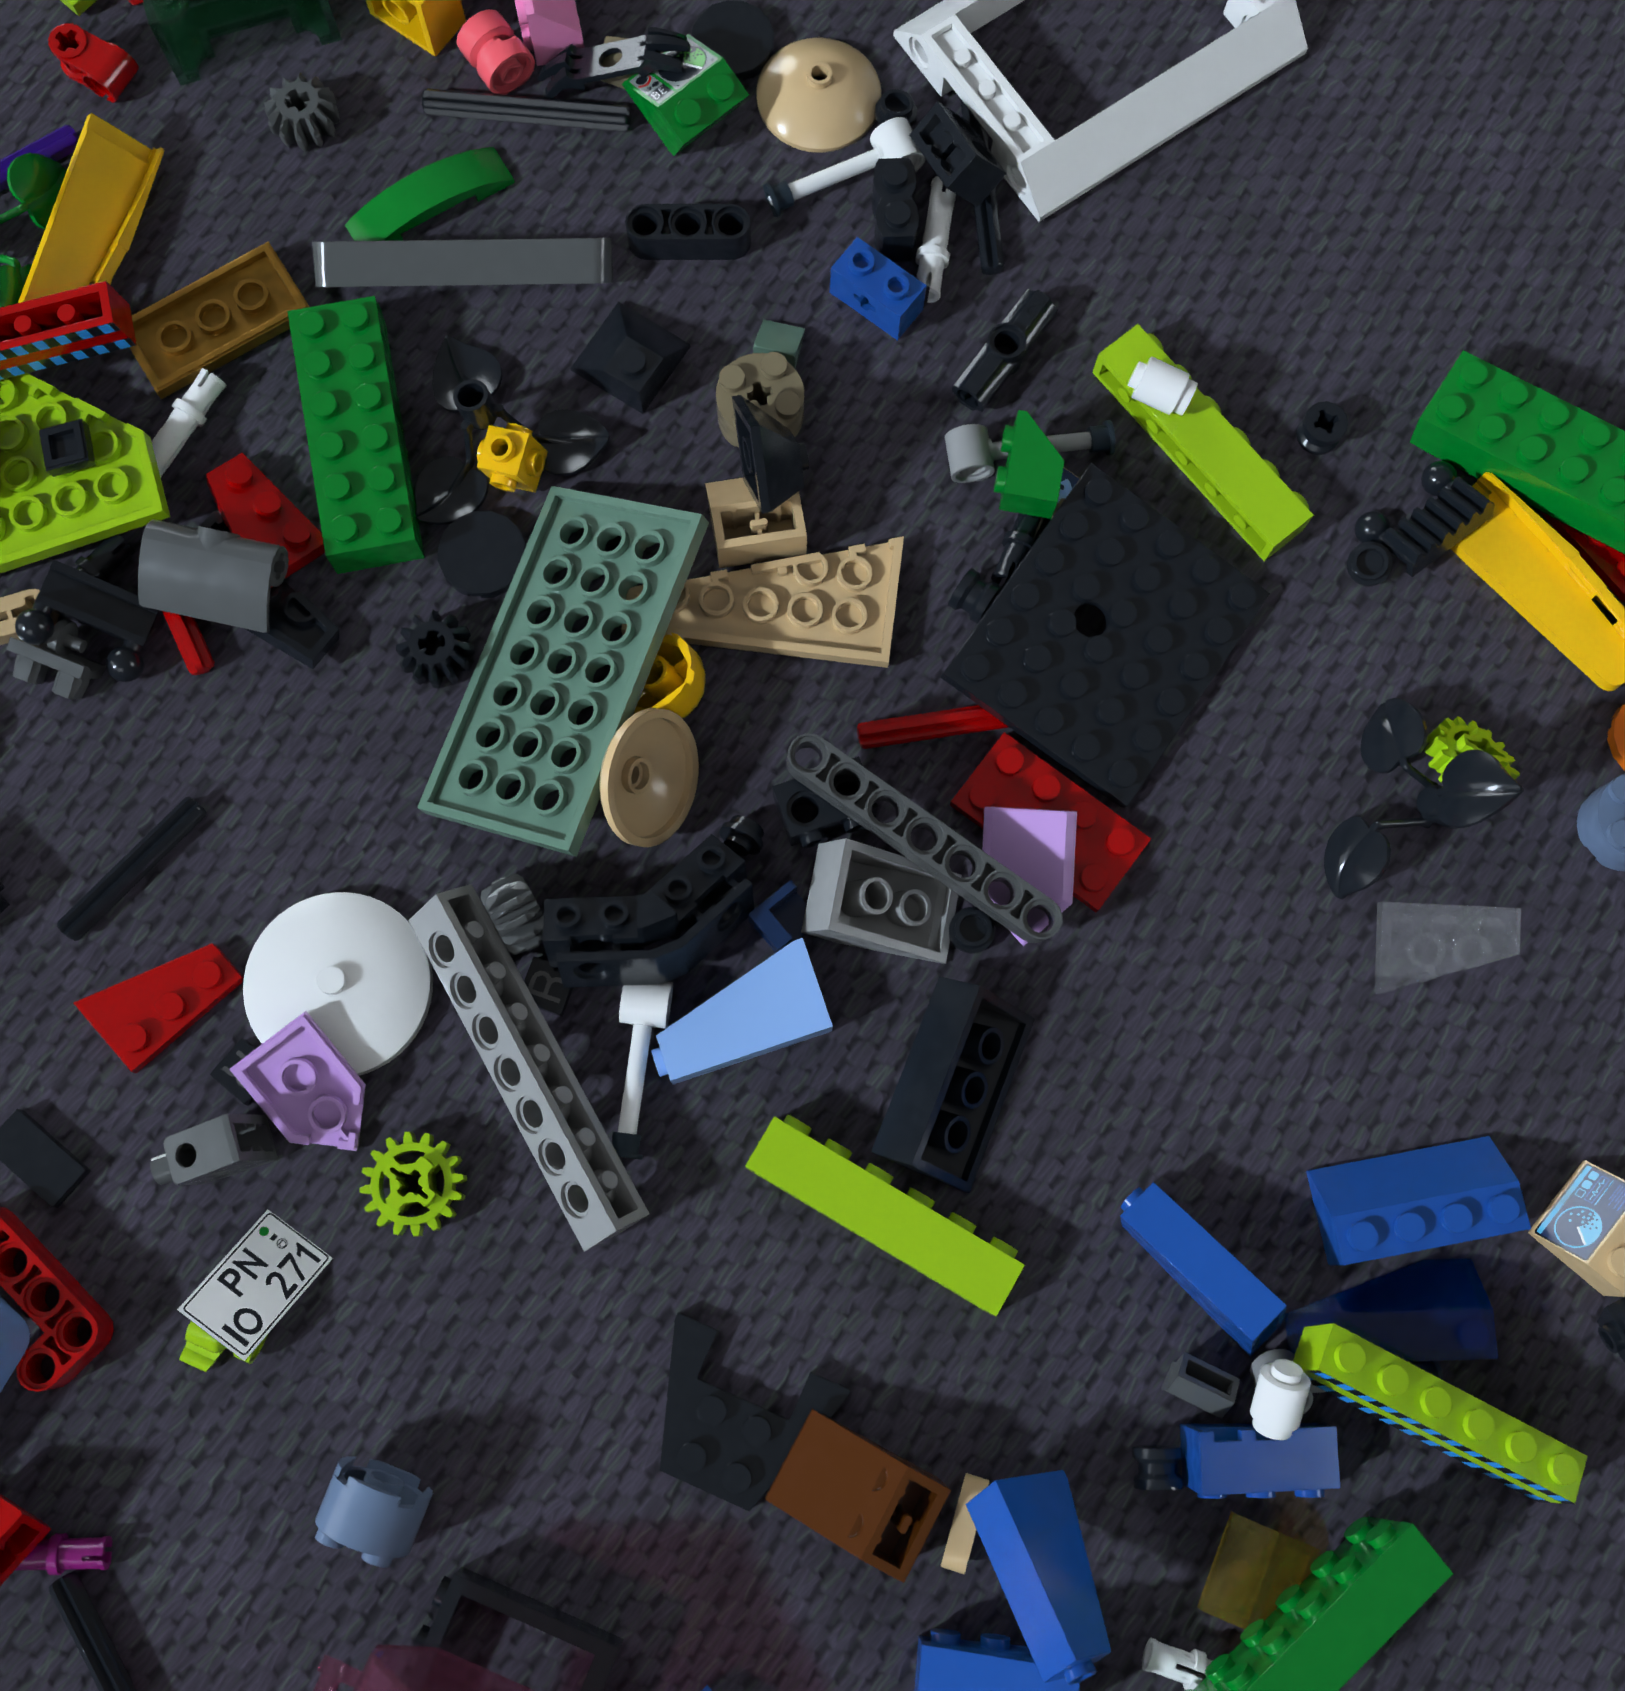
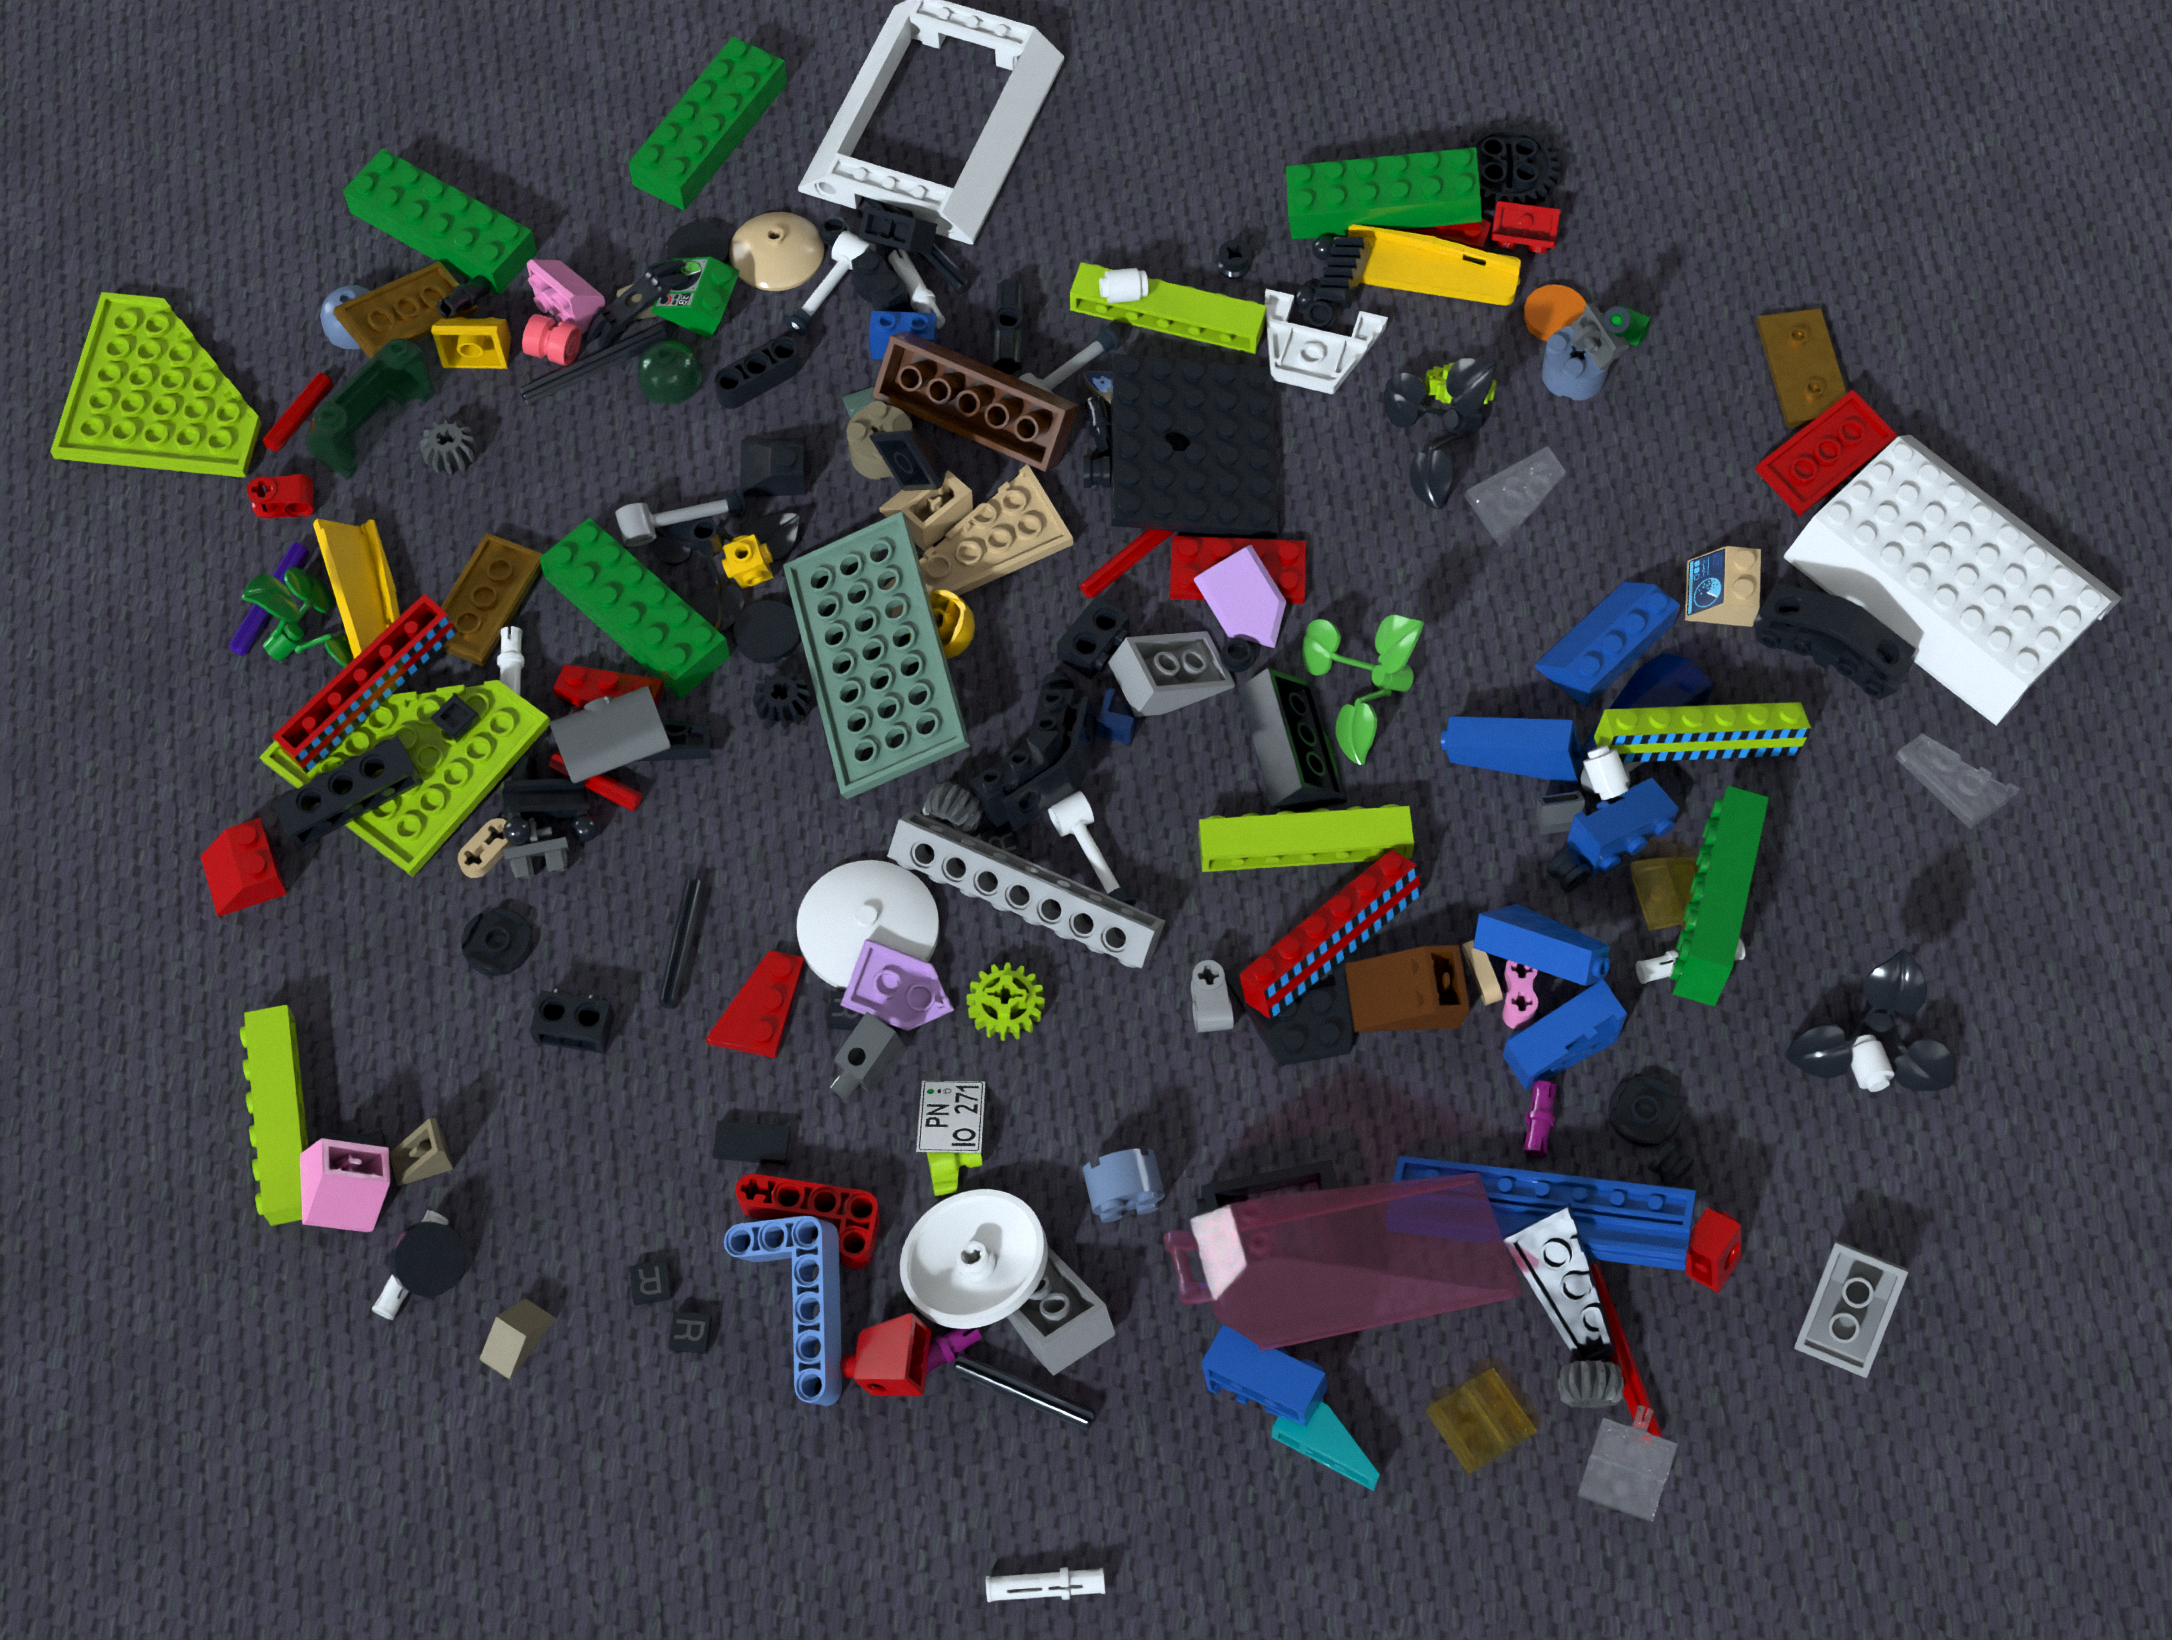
camera: 30 degrees left, 15 degrees down
(151, 1481) = (973, 1259): none -> white dish
(196, 1592) = (1062, 1317): none -> light grey slope
(429, 336) = (639, 525): none -> light grey piece
(430, 193) = (567, 451): green slope -> none
(463, 262) = (625, 471): dark grey beam -> none
(596, 171) = (669, 372): none -> clear green cylinder
(631, 1346) = (1210, 1002): none -> light grey piece
(649, 777) = (977, 680): tan dish -> none
(752, 1016) = (1142, 781): light blue slope -> none
(822, 1363) = (1330, 934): none -> red brick
(894, 423) = (975, 400): none -> reddish brown brick
(946, 840) = (1185, 603): dark grey beam -> none
(984, 1580) = (1519, 993): none -> bright pink axle
(1032, 470) = (1078, 377): green slope -> none
(1130, 1077) = (1394, 643): none -> bright green plant
(1326, 609) = (1314, 356): none -> white wing

